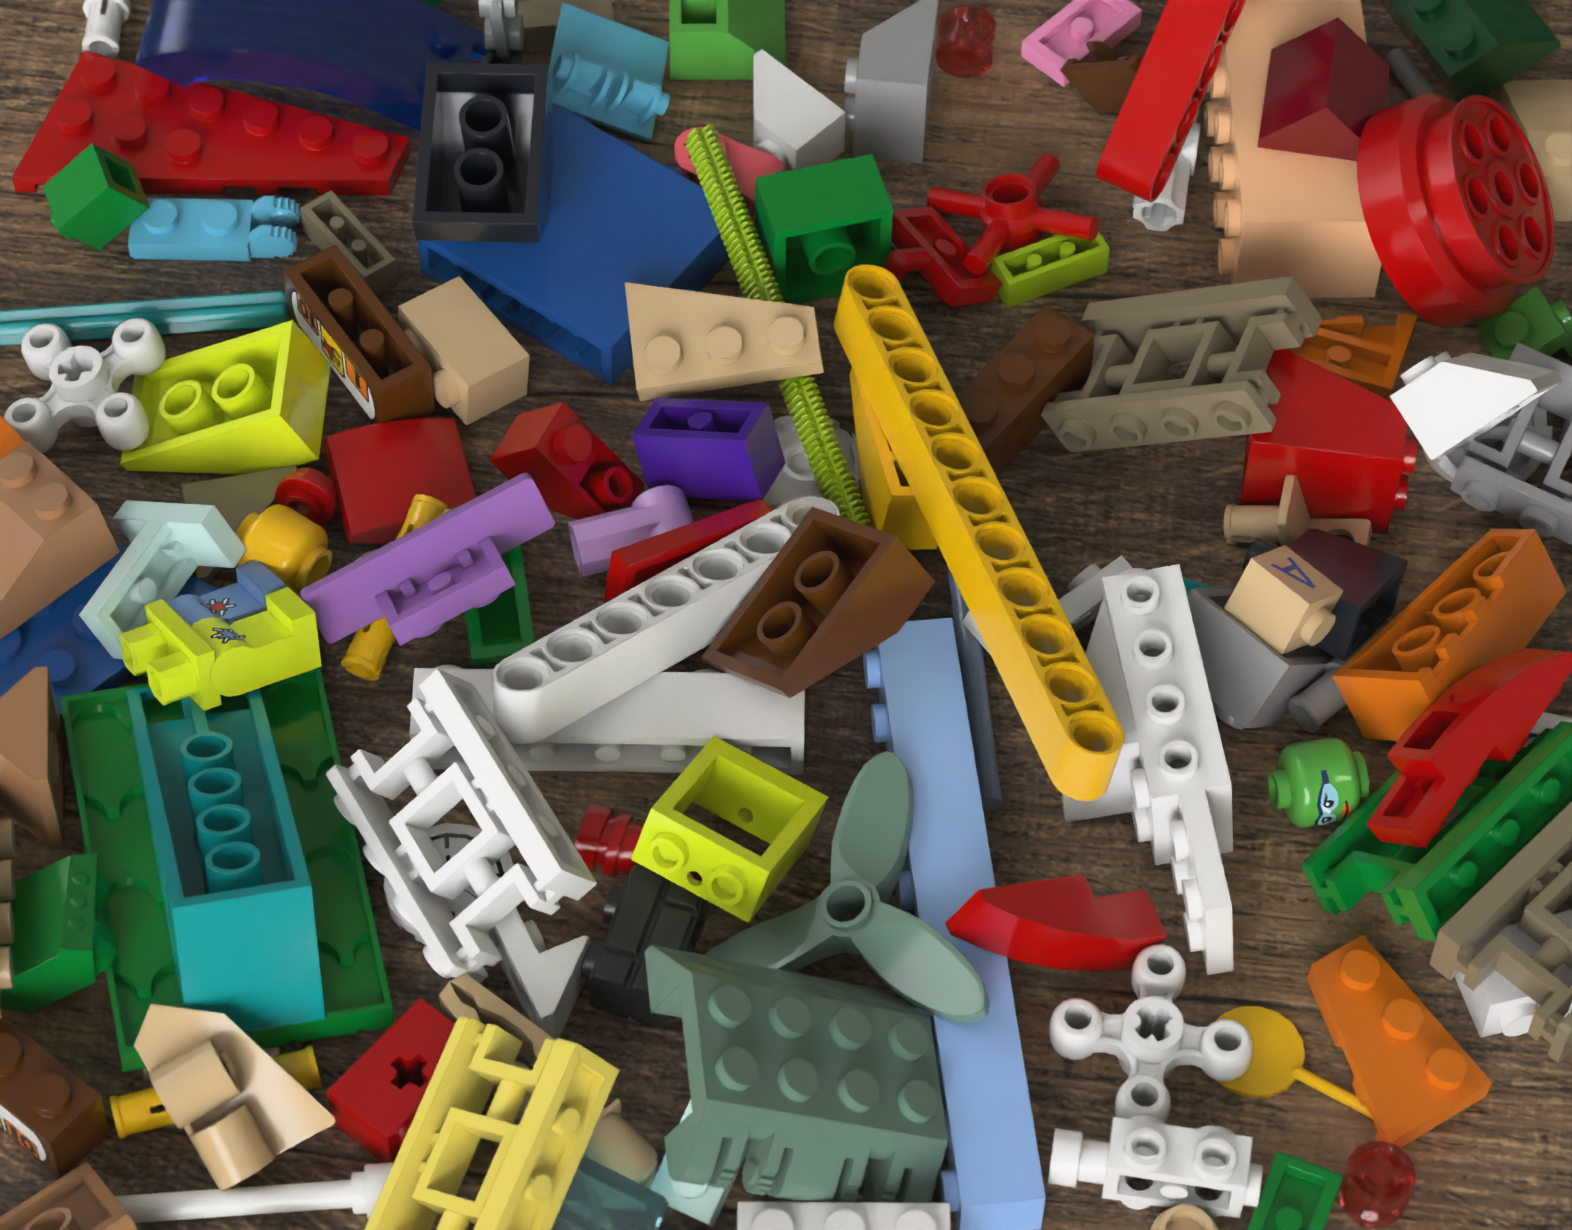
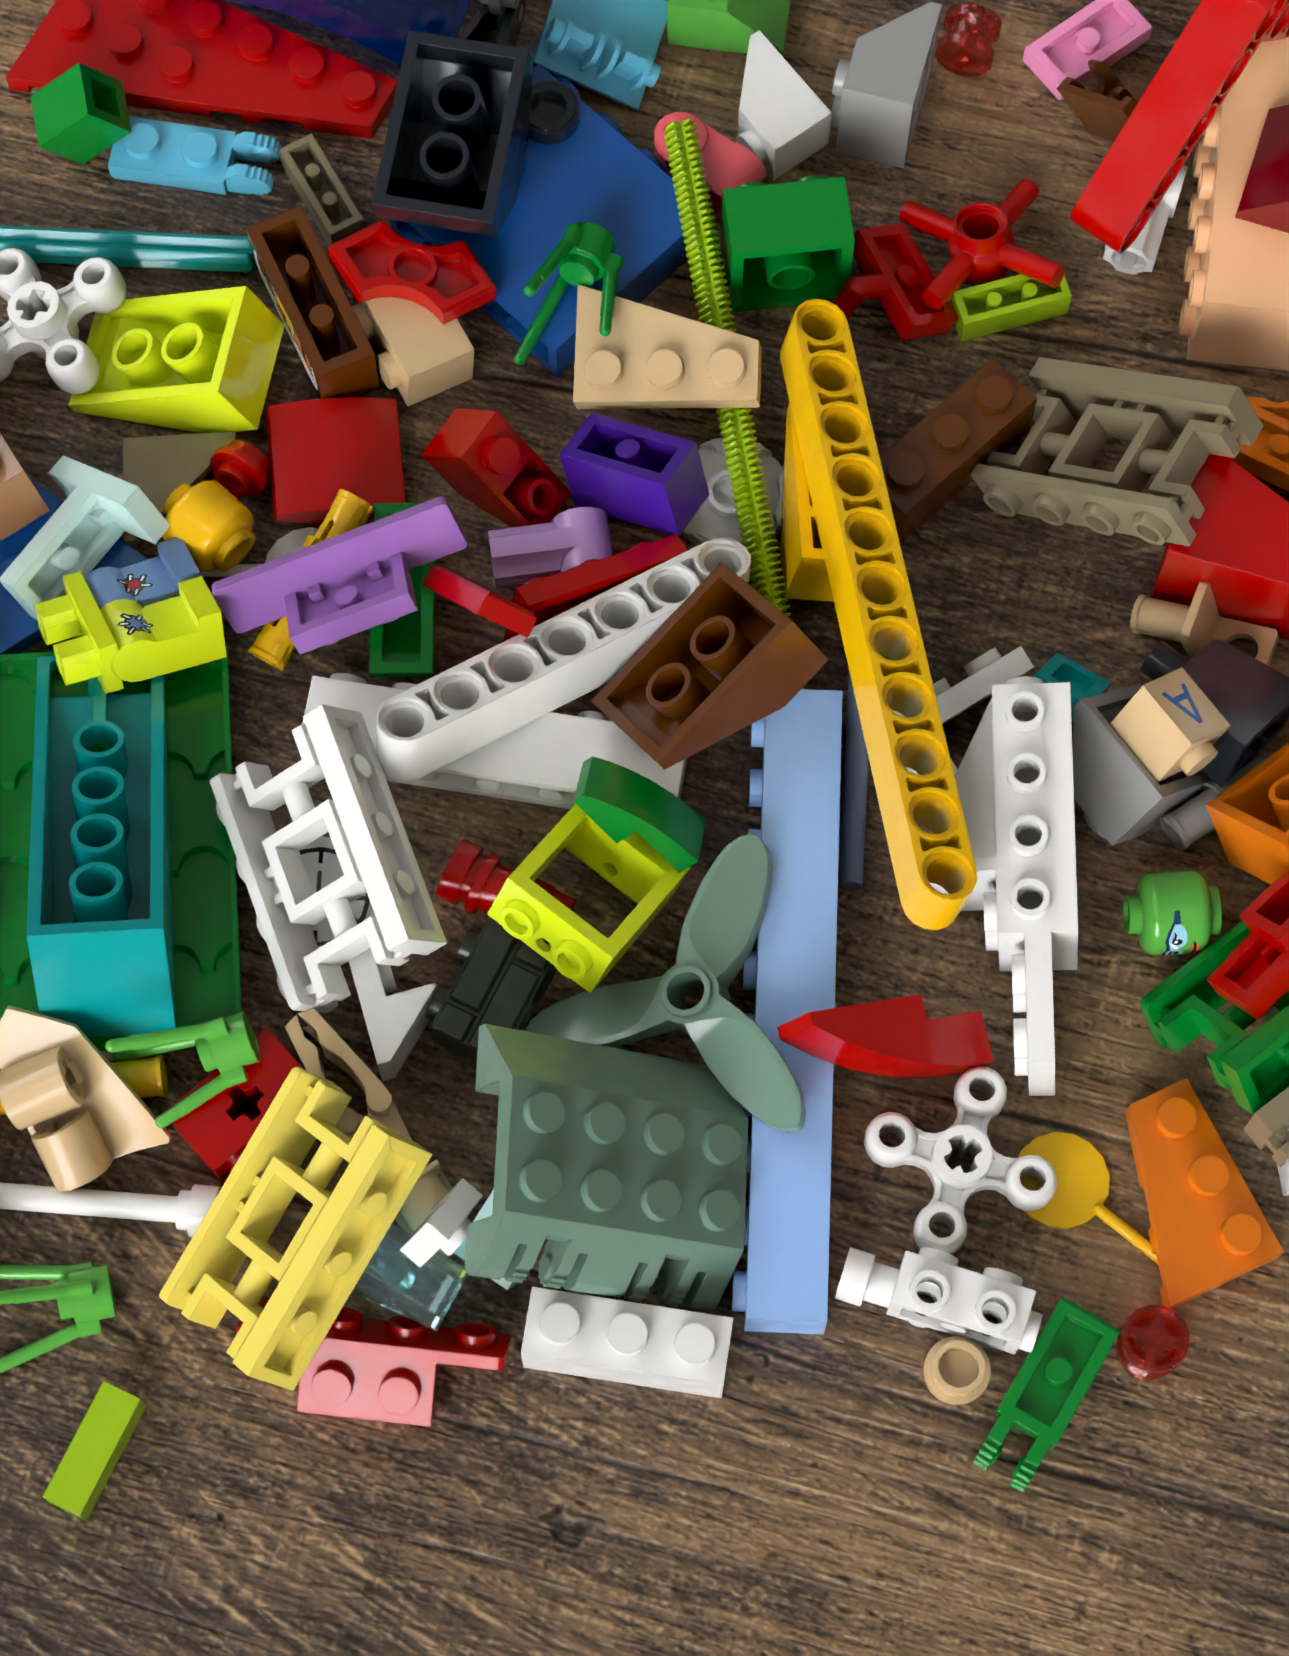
camera: 10 degrees right, 15 degrees up
(377, 1008) = (220, 1043): none -> bright green plant
(483, 293) = (440, 278): none -> red tile
(573, 140) = (552, 113): none -> black tile
(576, 569) = (480, 600): none -> red tile
(626, 256) = (583, 258): none -> green plant
(639, 1147) = (444, 1225): none -> white plate
(757, 736) = (631, 803): none -> green slope

